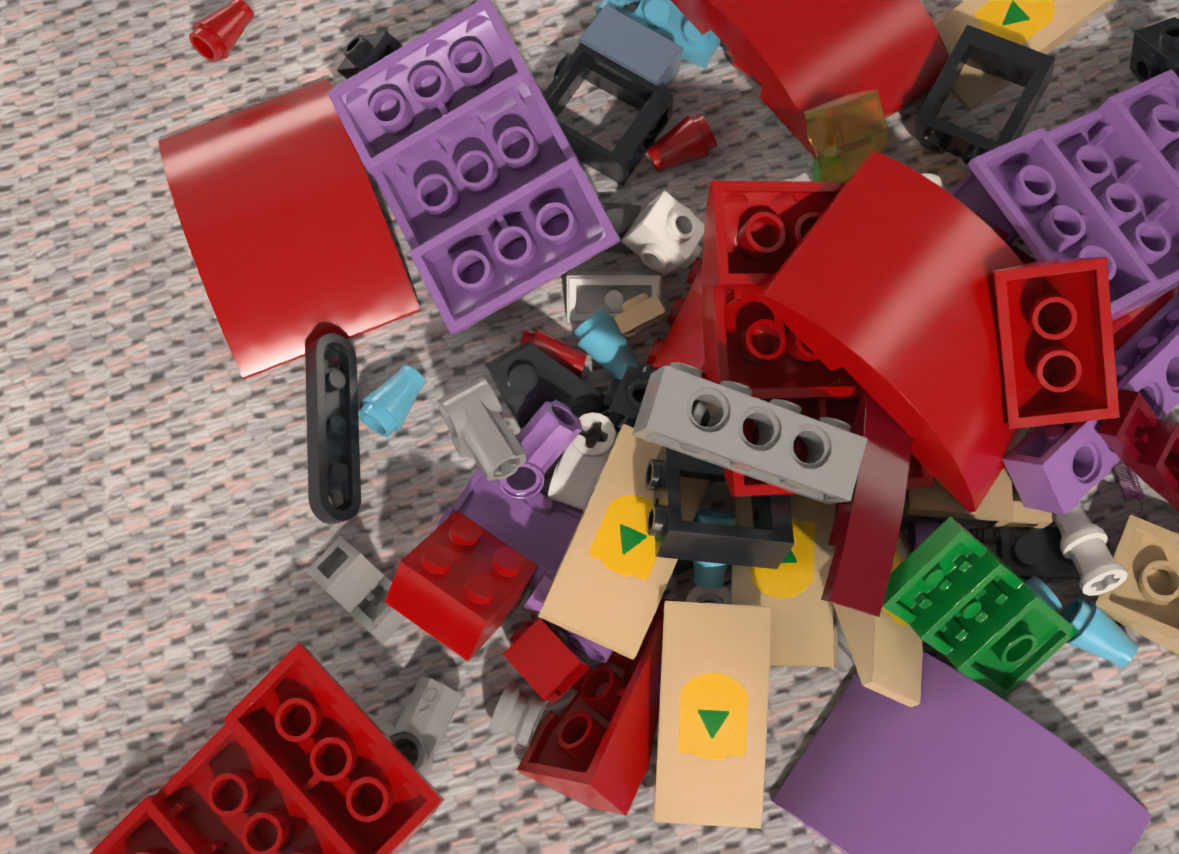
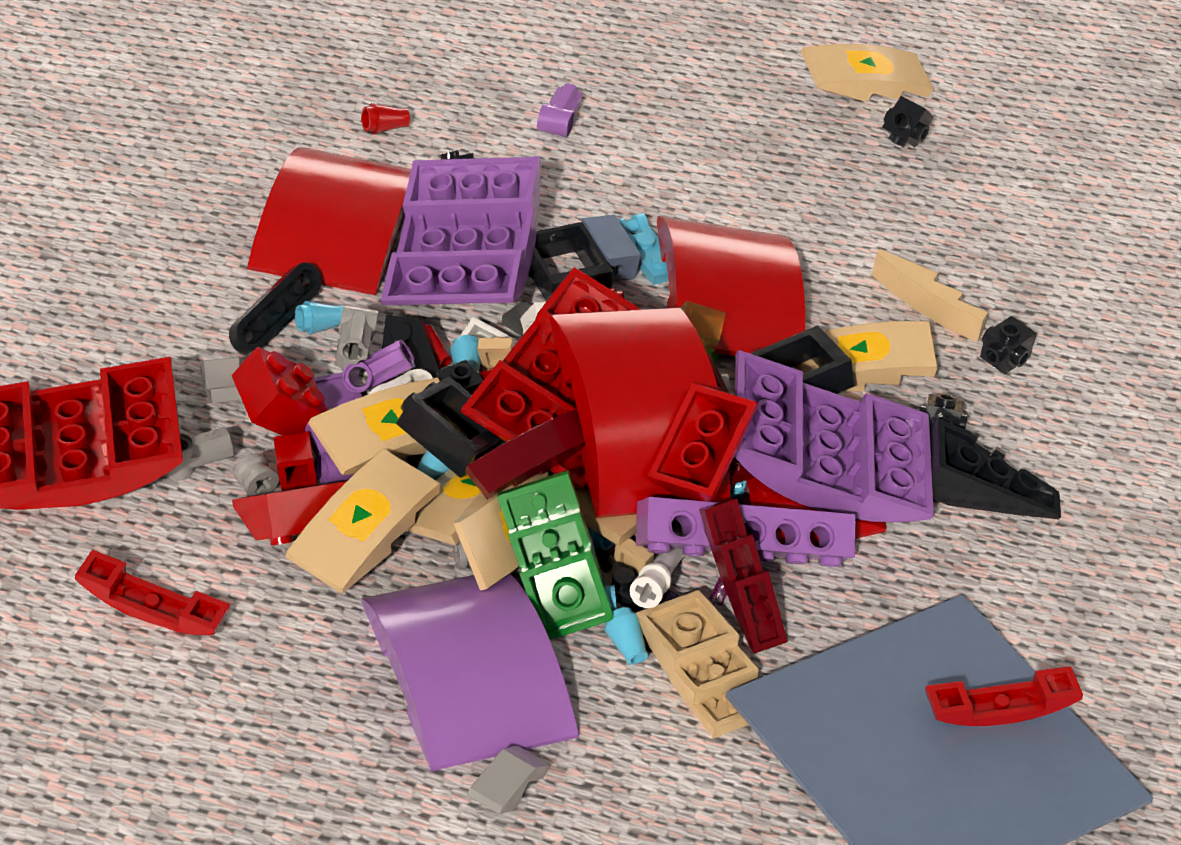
camera: 25 degrees right, 30 degrees down
(668, 421) = (465, 329): light grey brick -> none

